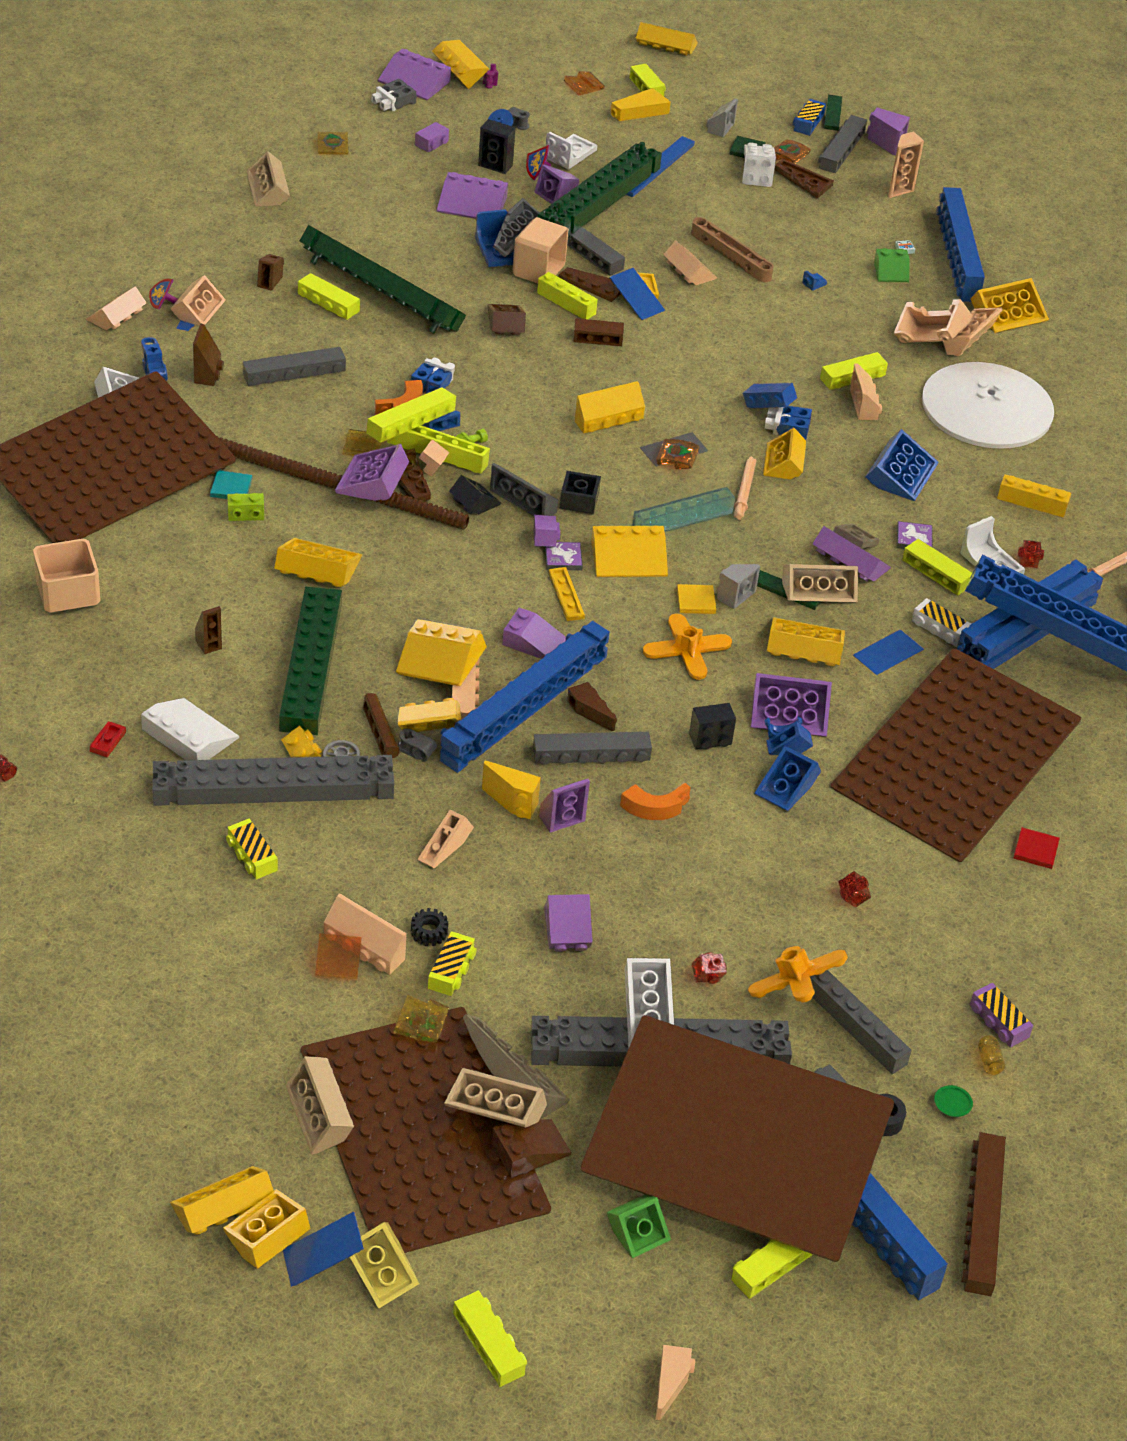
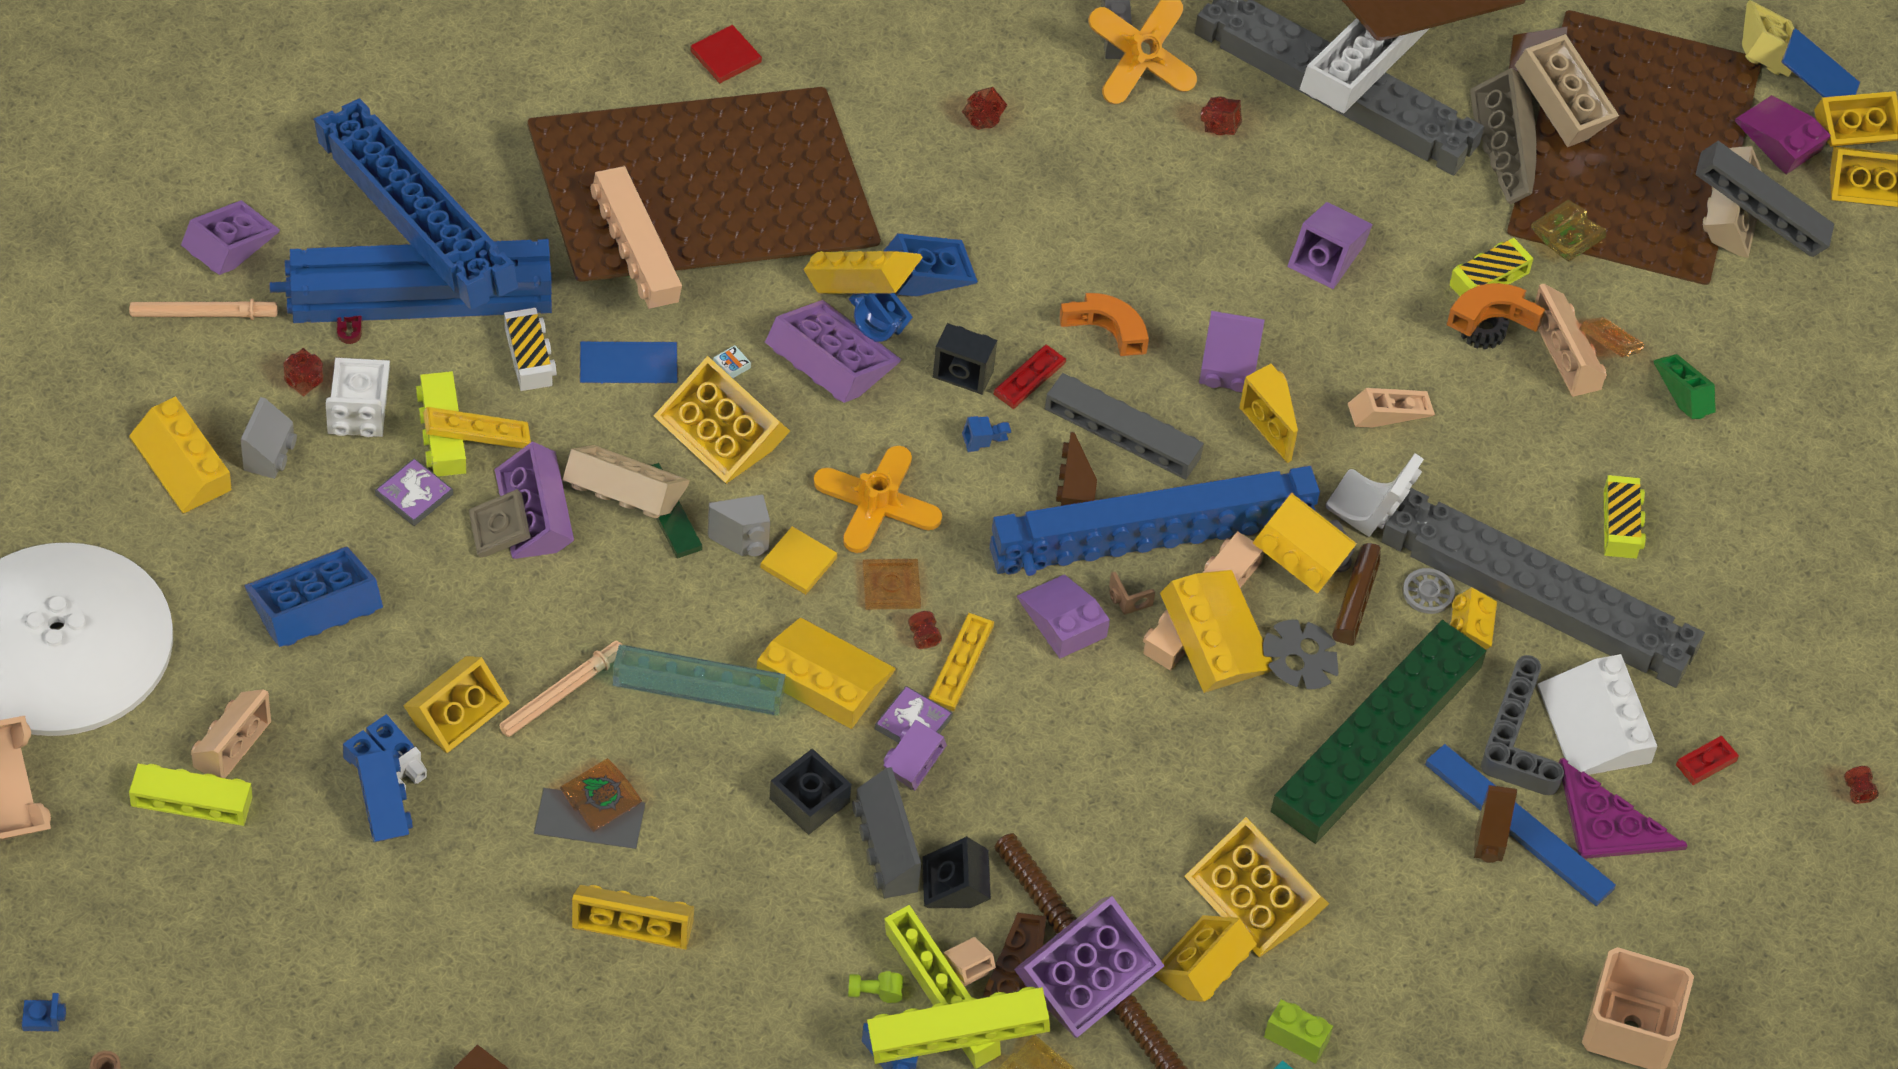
camera: 145 degrees left, 10 degrees up
(146, 681) = (1609, 824): none -> magenta tile
(197, 659) = (1524, 828): none -> blue tile
(231, 680) = (1510, 758): none -> dark grey beam
(268, 956) = (1688, 387): none -> green slope
(294, 1086) = (1765, 199): none -> dark grey brick
(320, 518) = (1206, 957): none -> yellow slope
(321, 1186) = (1783, 133): none -> magenta slope
(397, 682) = (1290, 644): none -> dark grey piece
(411, 774) = (1371, 503): none -> white bracket
(432, 922) = (1494, 301): none -> orange arch
(509, 658) = (1127, 603): none -> medium nougat bracket
(598, 593) = (924, 629): none -> clear red wheel
(638, 612) = (891, 584): none -> clear orange tile
(666, 702) = (979, 433): none -> blue piece
(672, 754) = (1029, 376): none -> red tile
(816, 733) = (860, 271): none -> yellow slope
(836, 676) = (733, 361): none -> tile
(917, 564) = (476, 427): none -> yellow tile
(947, 676) = (636, 237): none -> light nougat brick
(1006, 509) = (267, 440): none -> light grey slope

